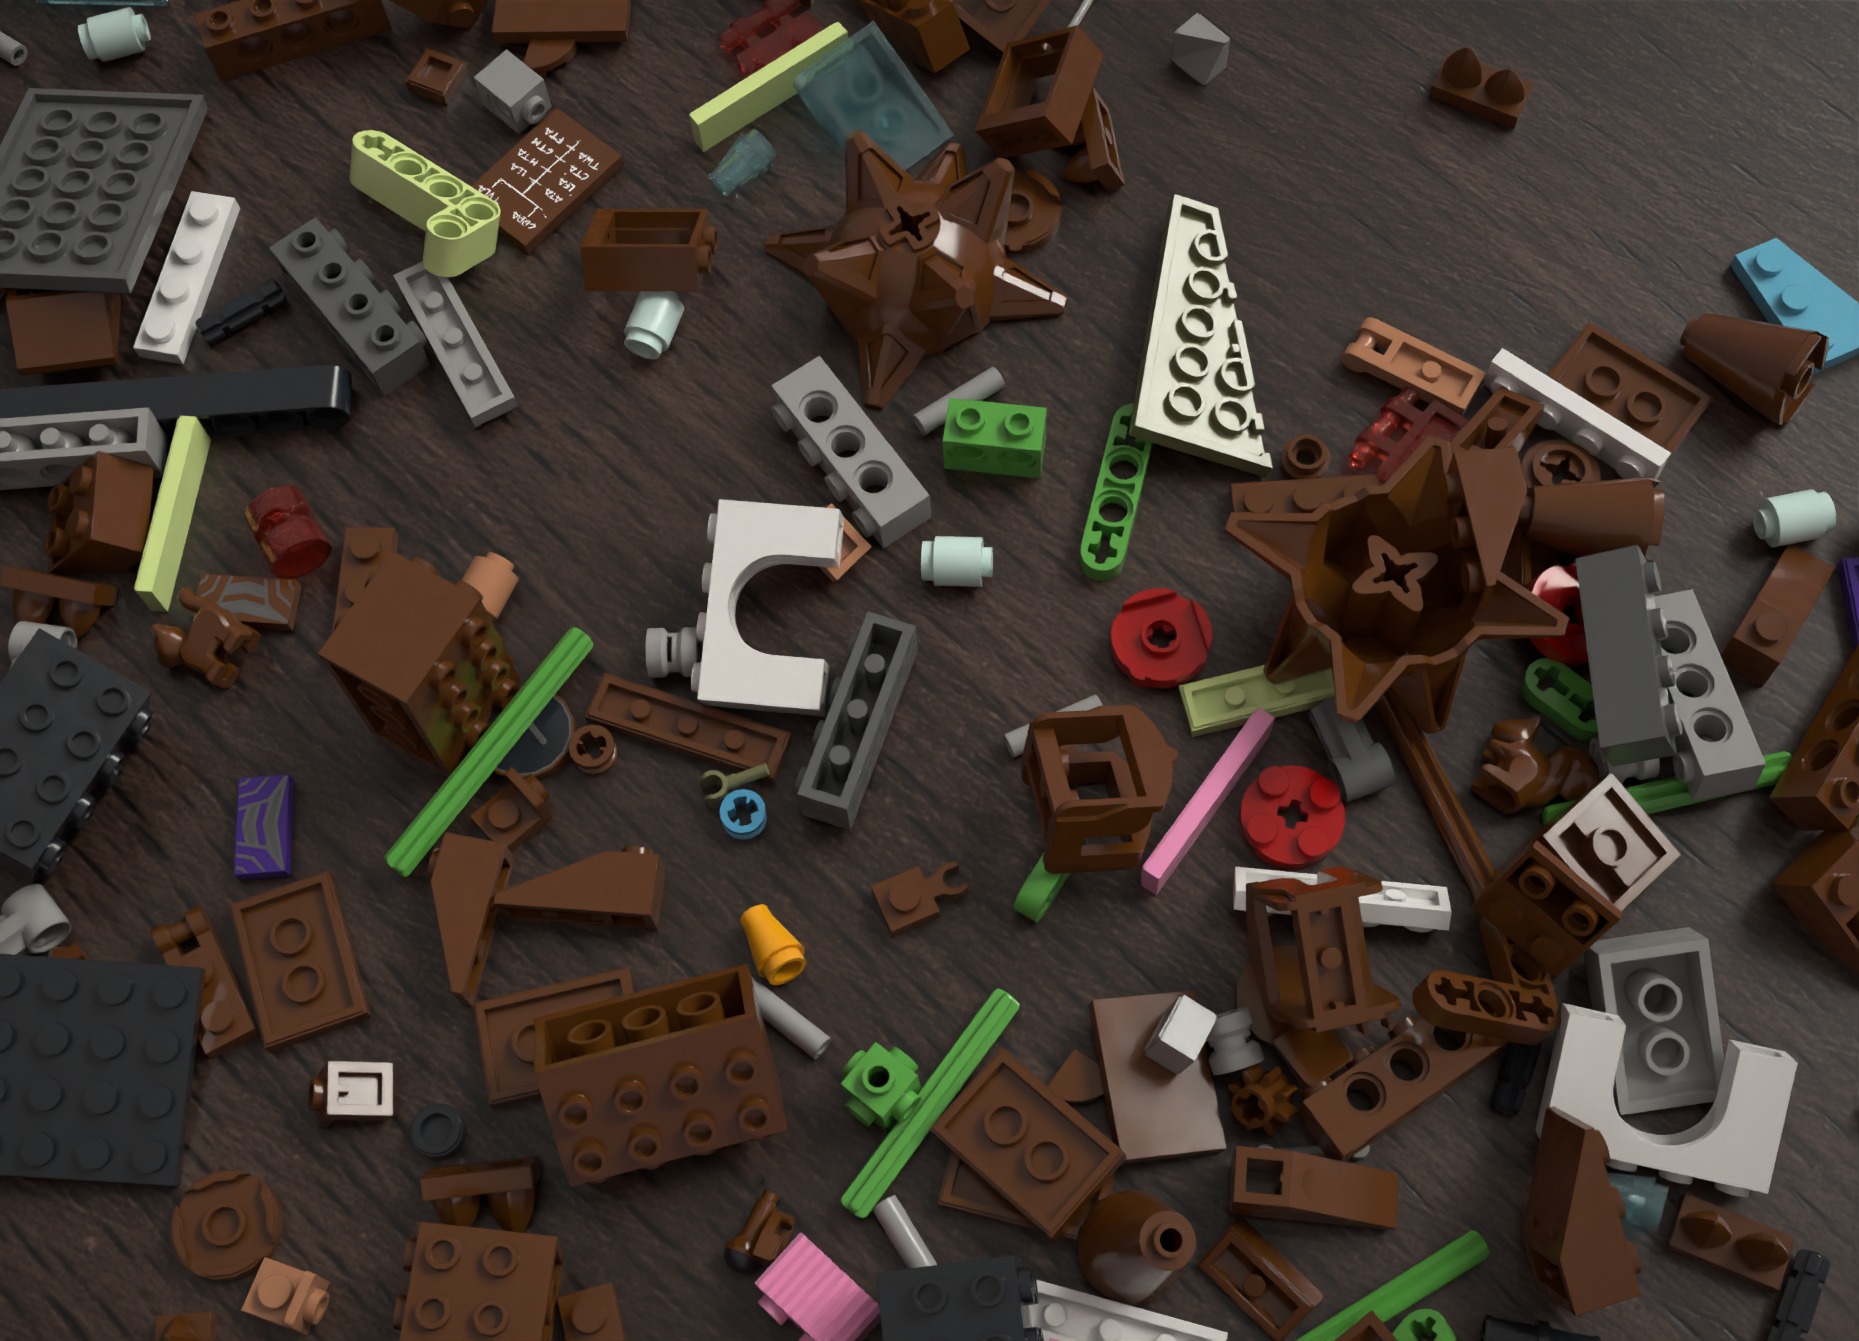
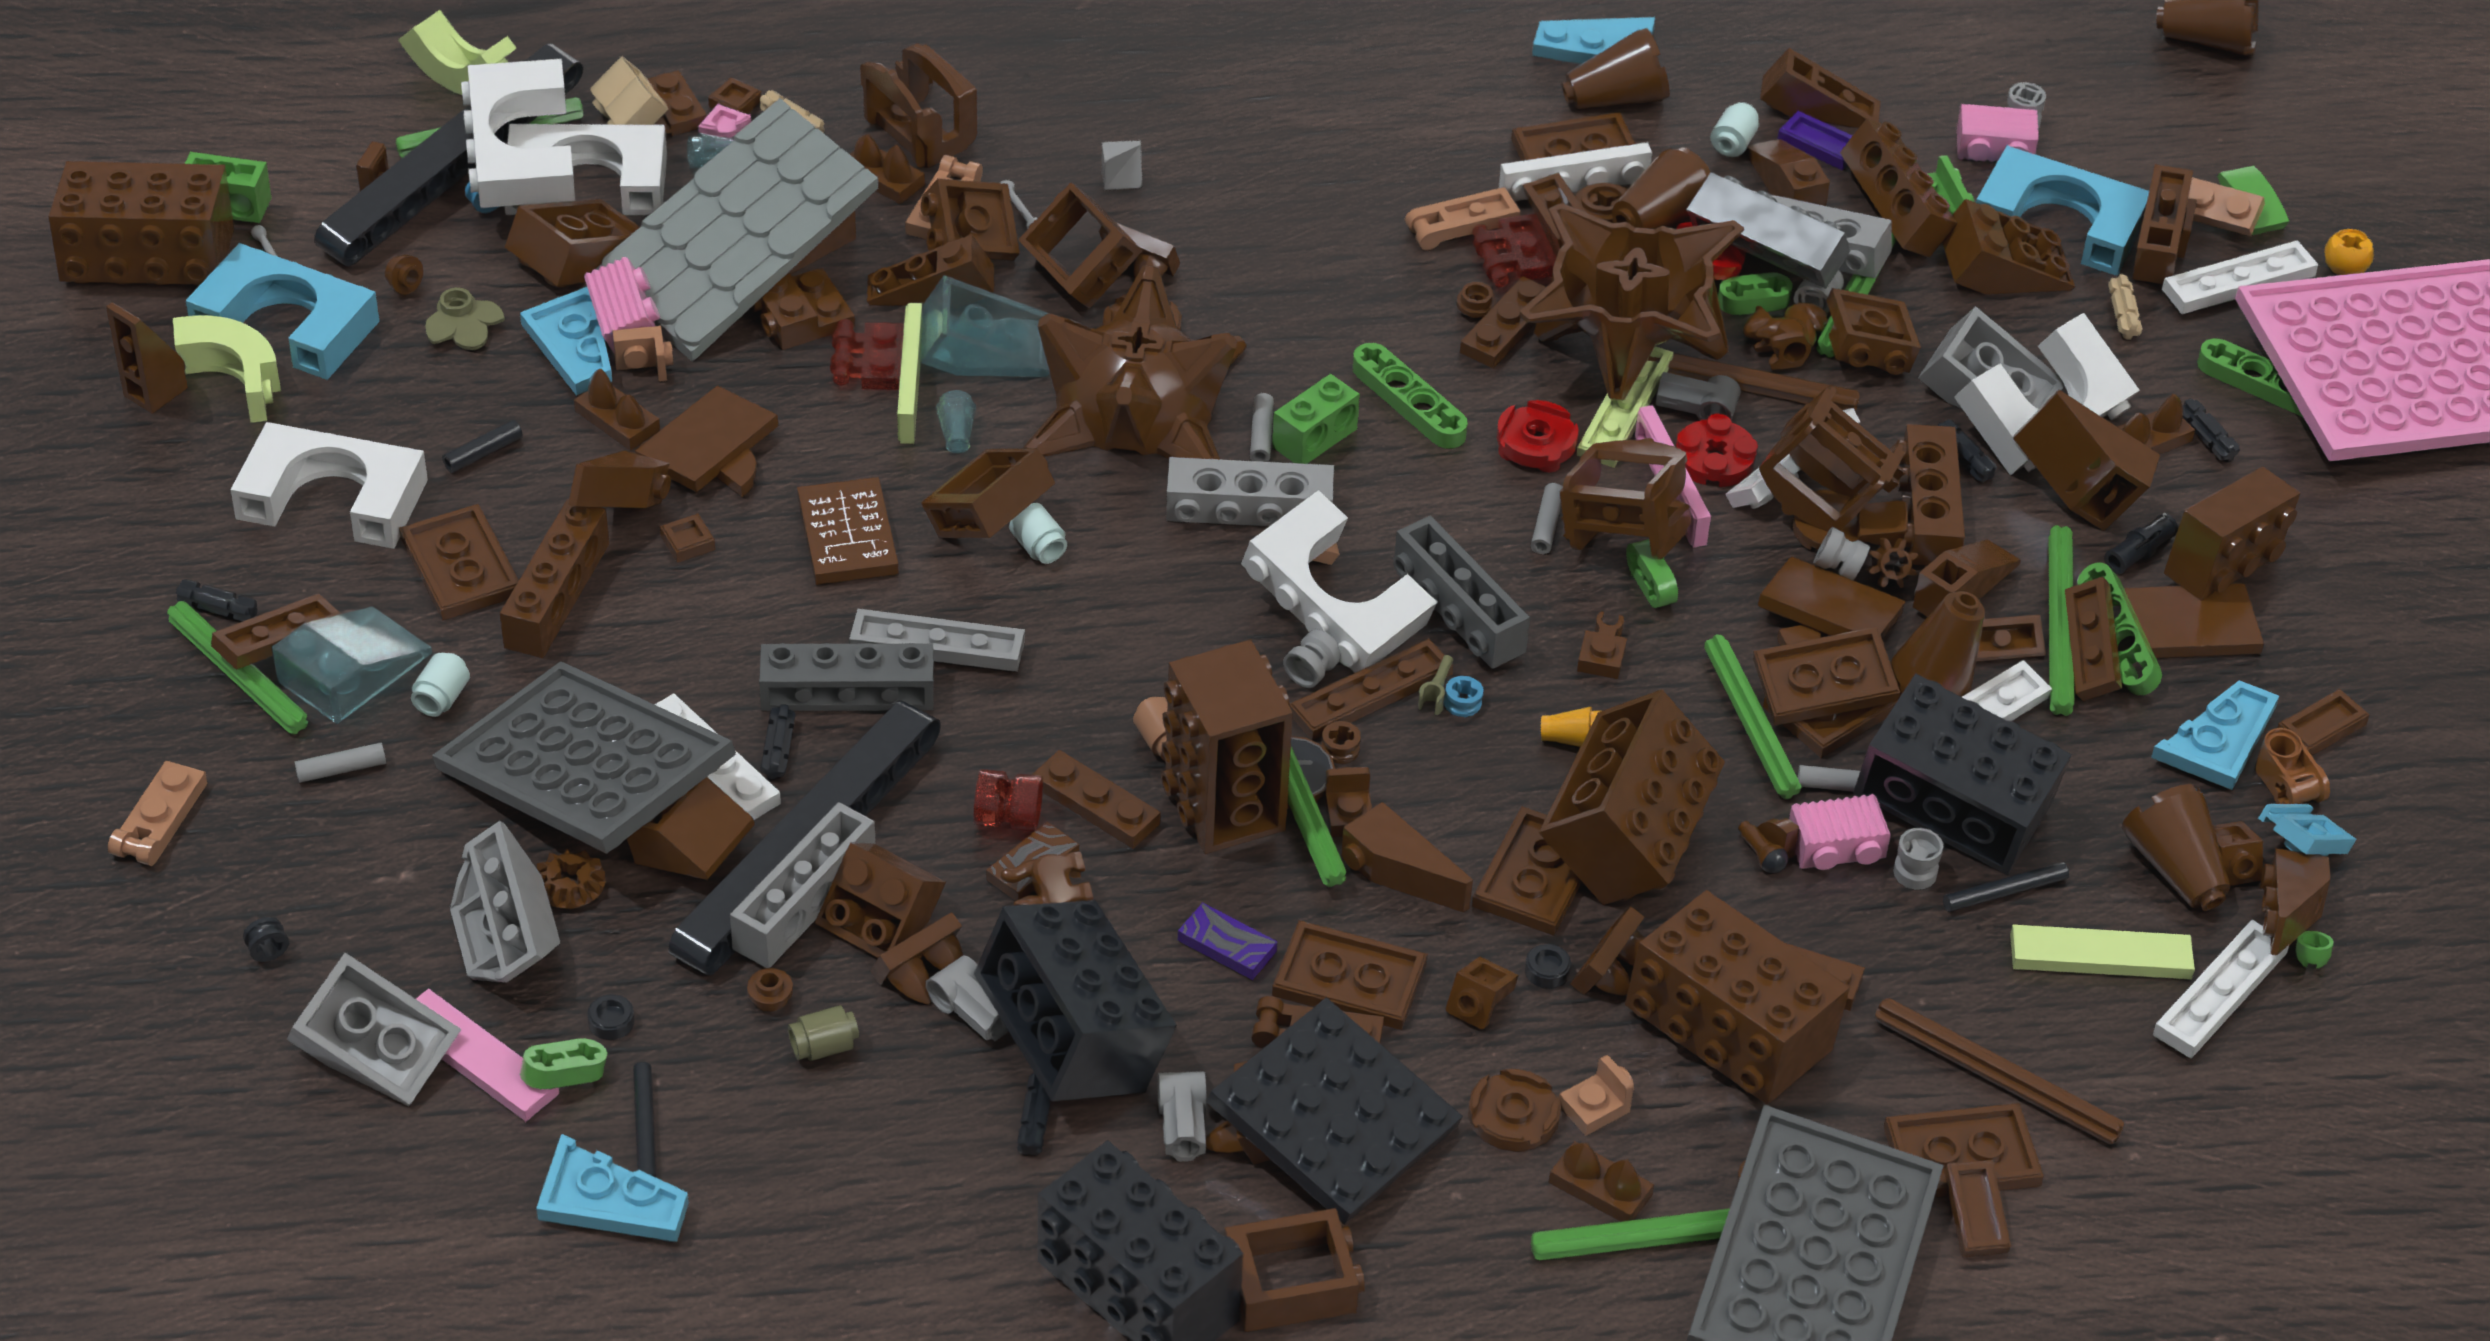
camera: 60 degrees left, 20 degrees down
(172, 514) = (894, 835): yellowish green tile -> none
(456, 217) = (804, 586): yellowish green beam -> none
(513, 92) = (761, 499): light grey brick -> none
(597, 891) = (1460, 783): reddish brown slope -> none
(881, 1104) = (1727, 722): bright green brick -> none
(956, 561) = (1385, 491): light aqua brick -> none
(1180, 1034) = (1822, 564): slope -> none
(1195, 352) = (1351, 299): wing -> none
(1480, 88) = (1288, 72): reddish brown tile -> none
(1485, 503) = (1641, 206): reddish brown slope -> none
(1523, 1008) = (1915, 414): reddish brown beam -> none
(1545, 908) = (1891, 356): reddish brown slope -> none

